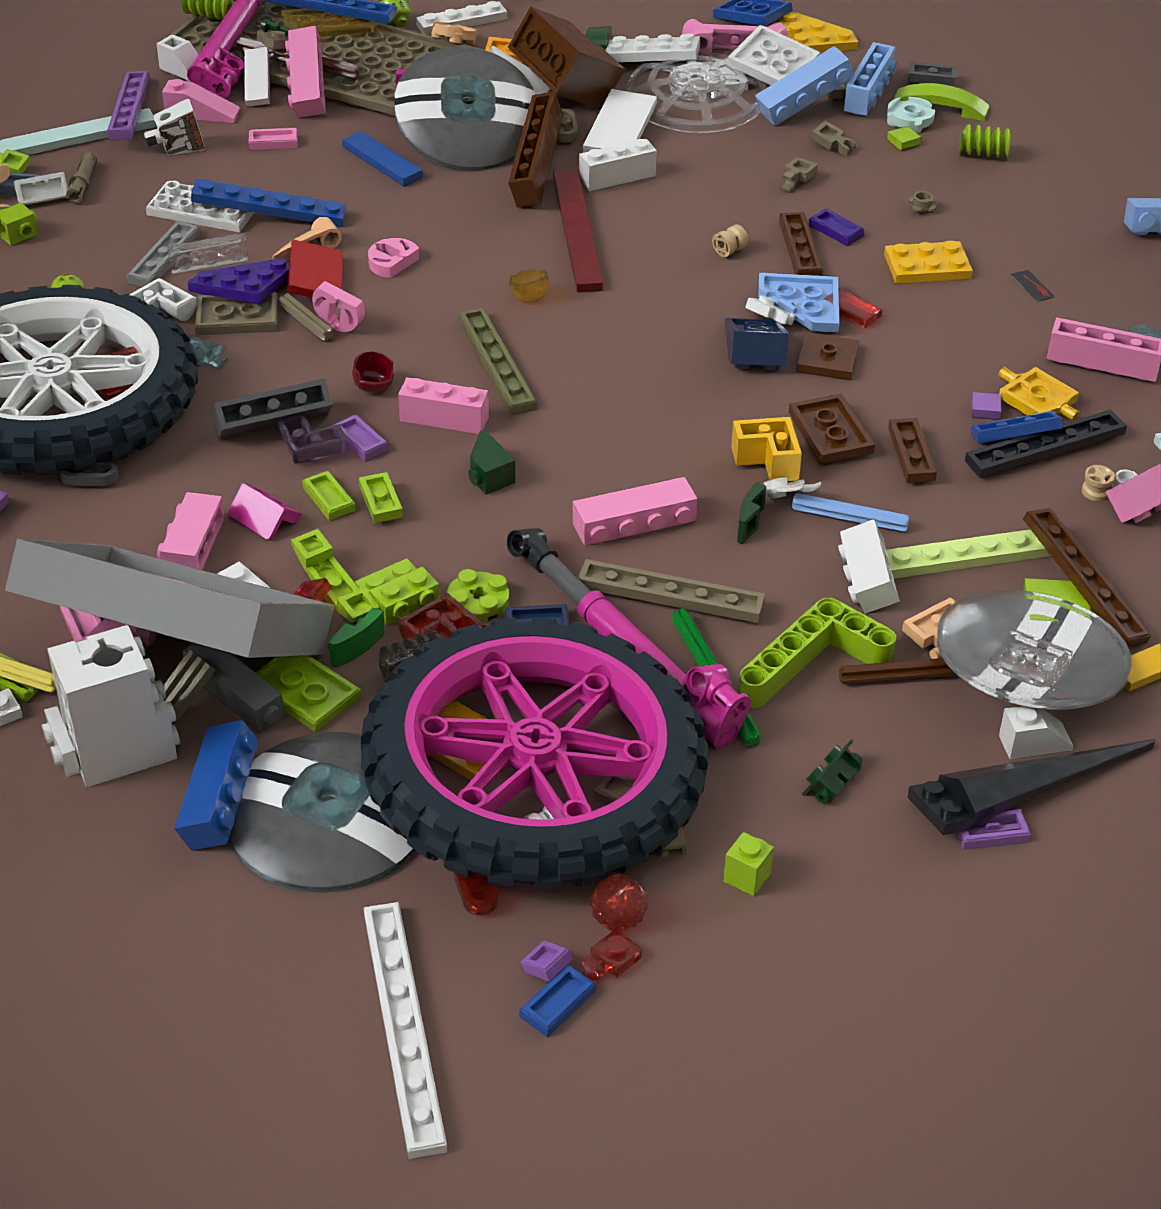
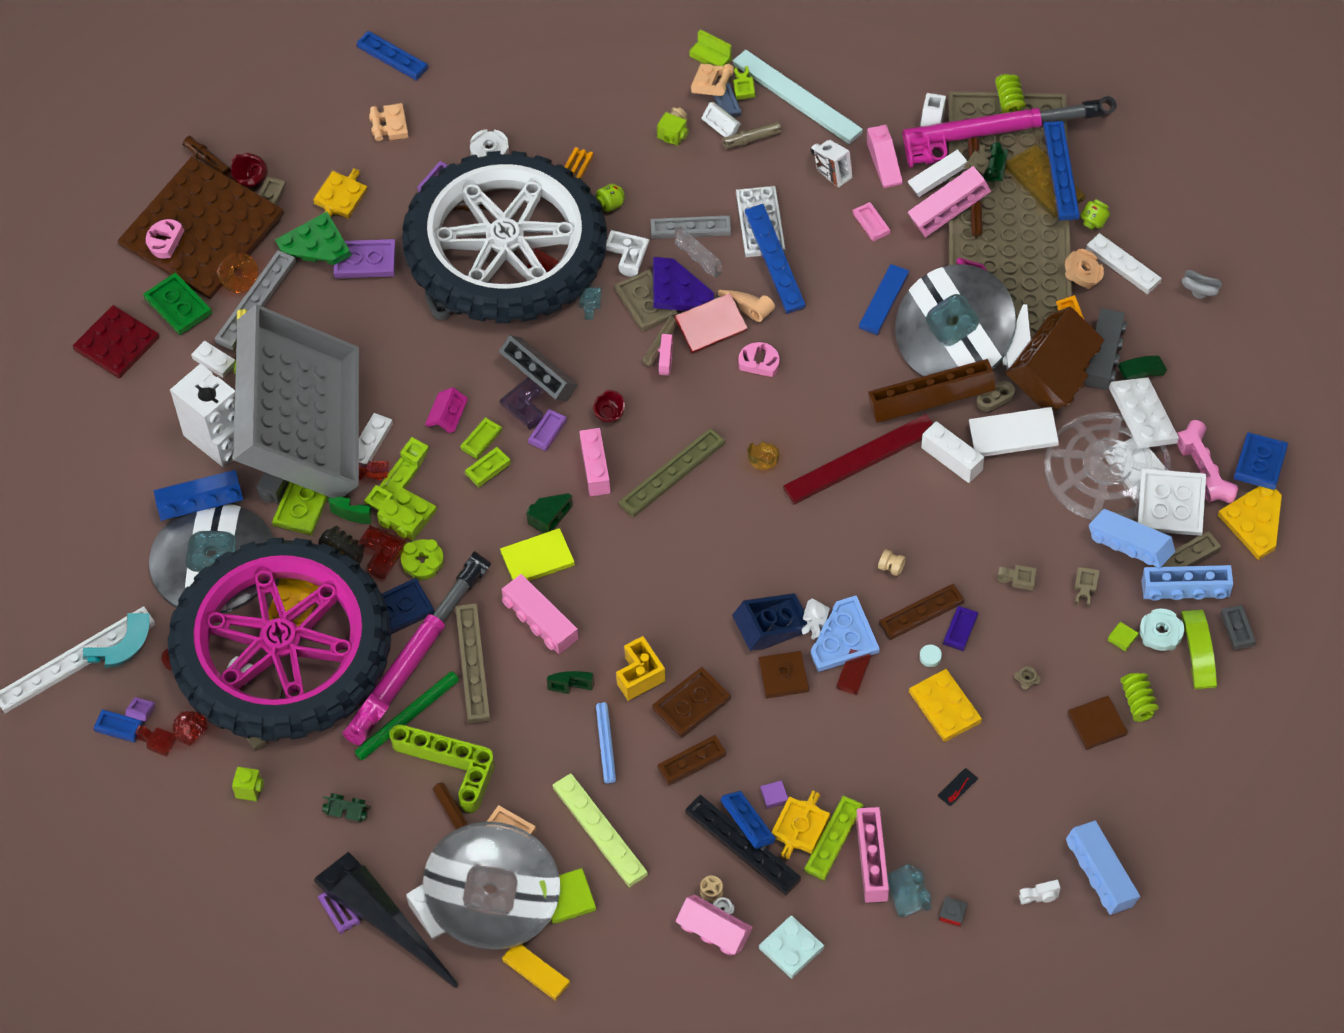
camera: 70 degrees right, 15 degrees up
(128, 105) = (855, 115): medium lavender tile -> none
(193, 530) = (402, 383): bright pink brick -> none
(428, 934) = (127, 648): none -> teal arch
(543, 496) = (538, 556): none -> neon yellow tile
(778, 487) = (606, 693): white plate -> none
(860, 254) = (930, 656): none -> light aqua tile
(868, 567) = (543, 768): white brick -> none
(998, 179) = (1097, 722): none -> reddish brown tile
(1086, 575) = (596, 904): reddish brown tile -> none
(1090, 397) = (833, 838): none -> lime tile

